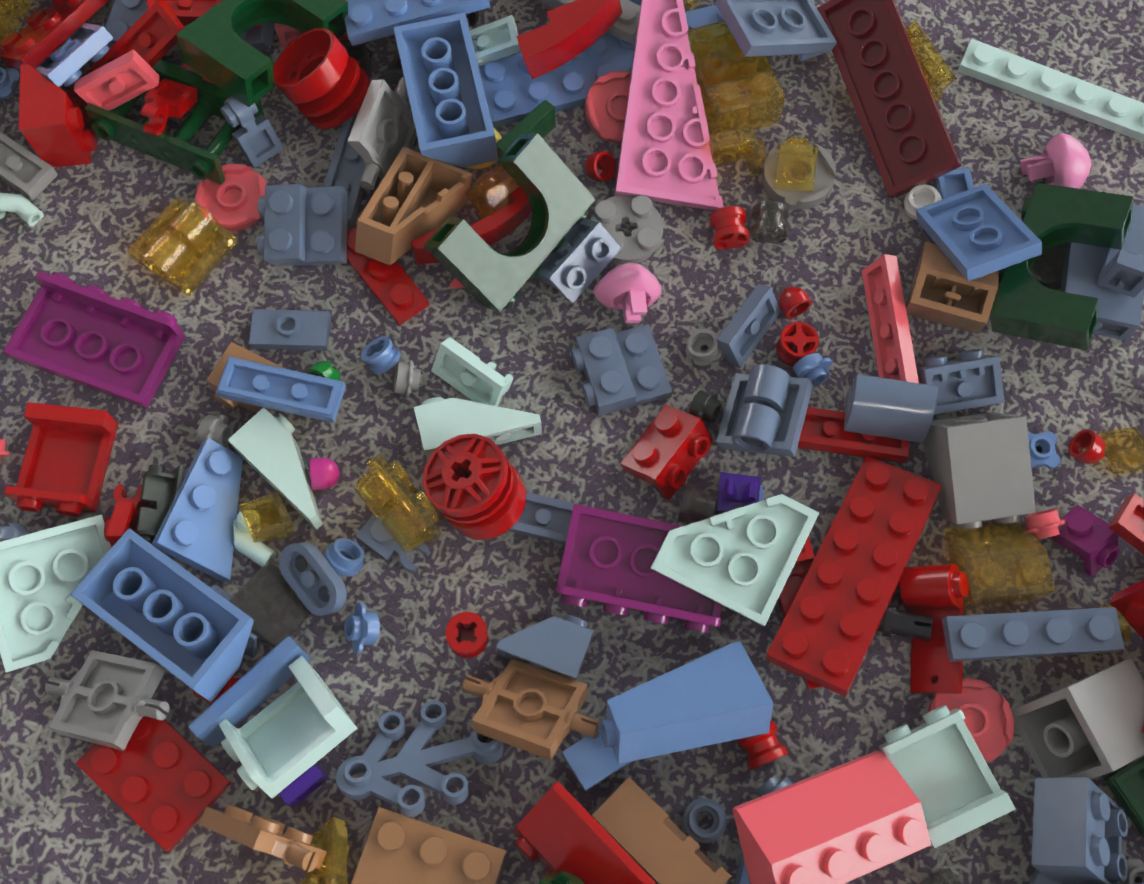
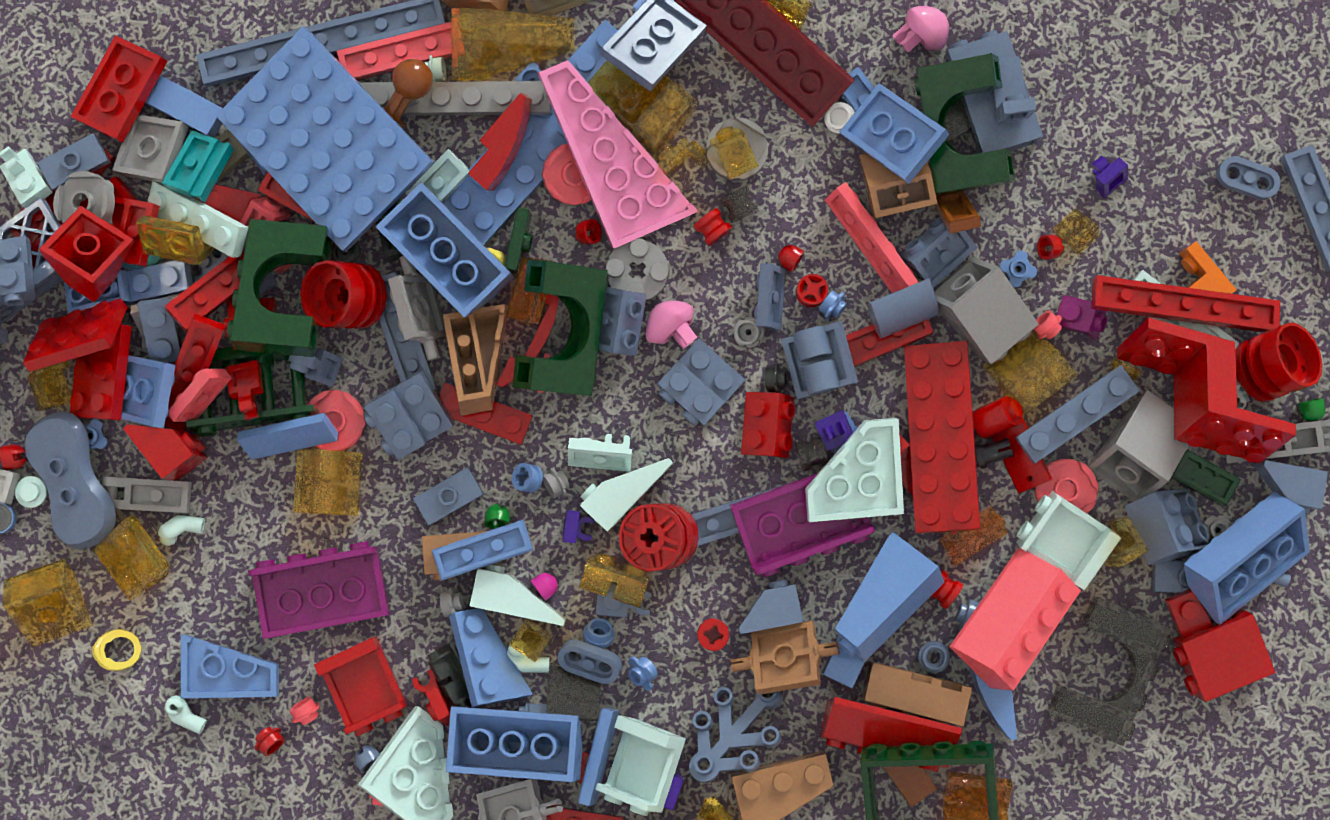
camera: 30 degrees left, 15 degrees up
(175, 176) = (287, 436): none -> medium blue tile
(392, 428) = (572, 527): none -> dark purple tile
(829, 710) = (968, 543): none -> clear orange hinge
(1003, 348) = (957, 212): none -> dark orange tile
(1020, 825) = (1131, 543): none -> clear yellow panel

